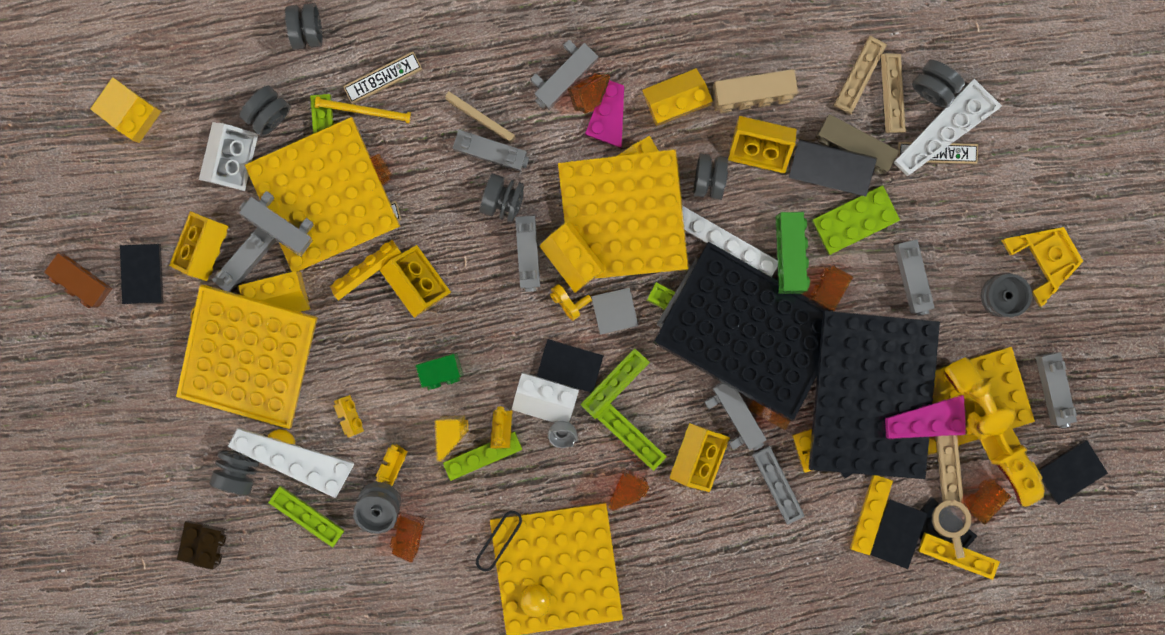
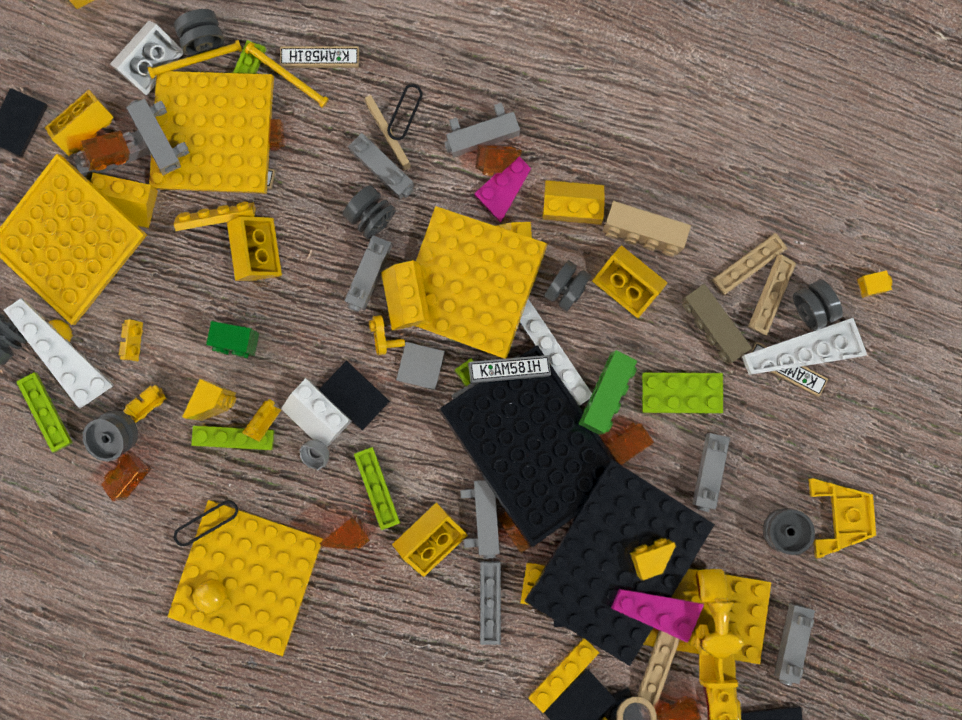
camera: 25 degrees right, 5 degrees down
(241, 261) = (105, 151): none -> clear orange brick
(272, 136) = (194, 59): none -> yellow bar
(494, 91) = (397, 108): none -> black piece
(614, 383) = (386, 431): lime plate -> none
(696, 276) = (509, 369): none -> tile
(832, 167) = (684, 333): black tile -> none
(902, 379) = (652, 559): none -> yellow slope
(979, 38) = (875, 284): none -> yellow brick

